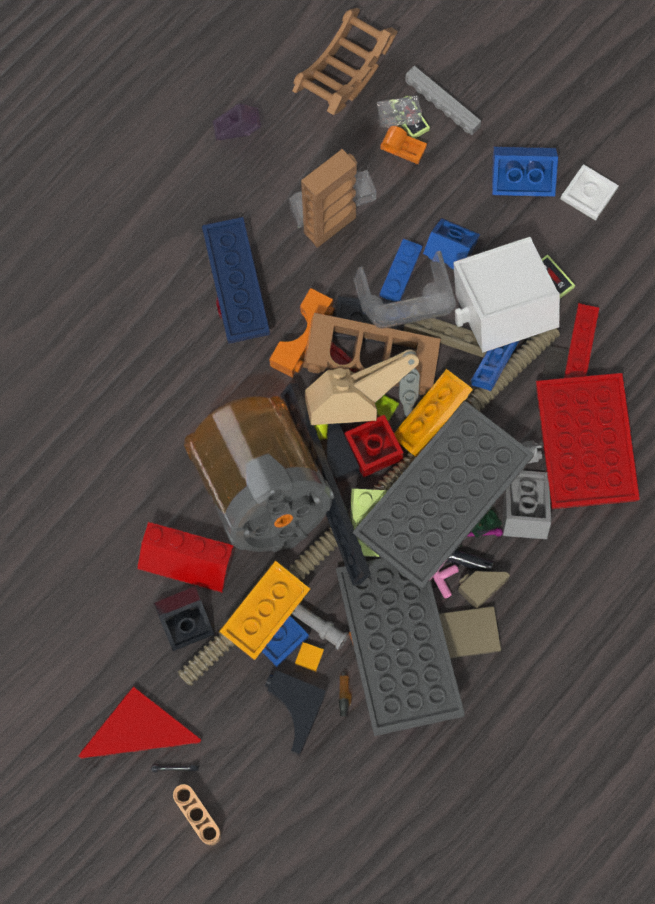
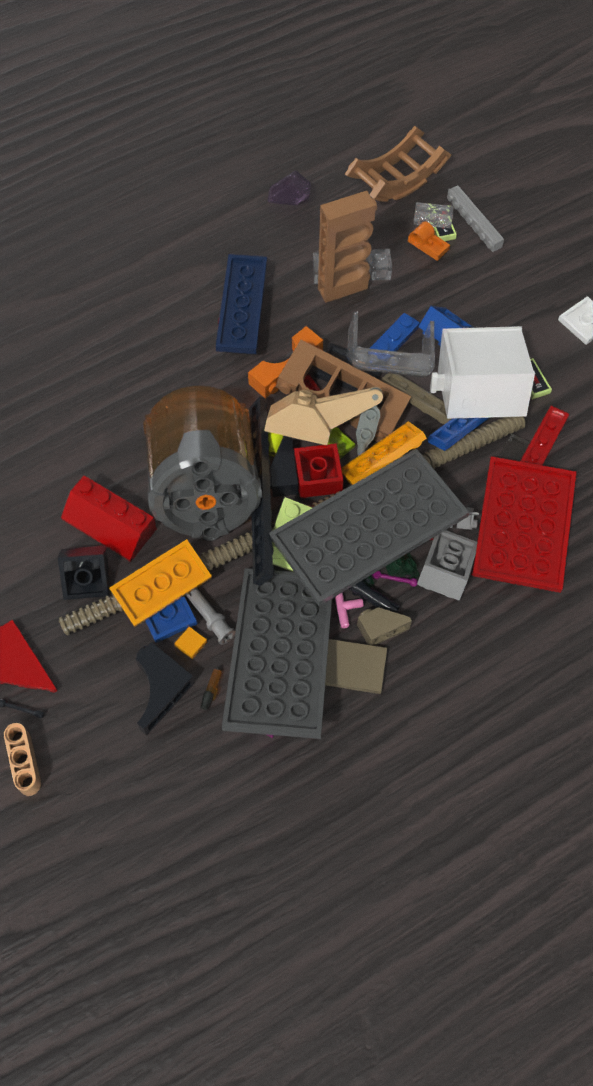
camera: 15 degrees right, 10 degrees down
(524, 171) = (531, 288): blue slope -> none

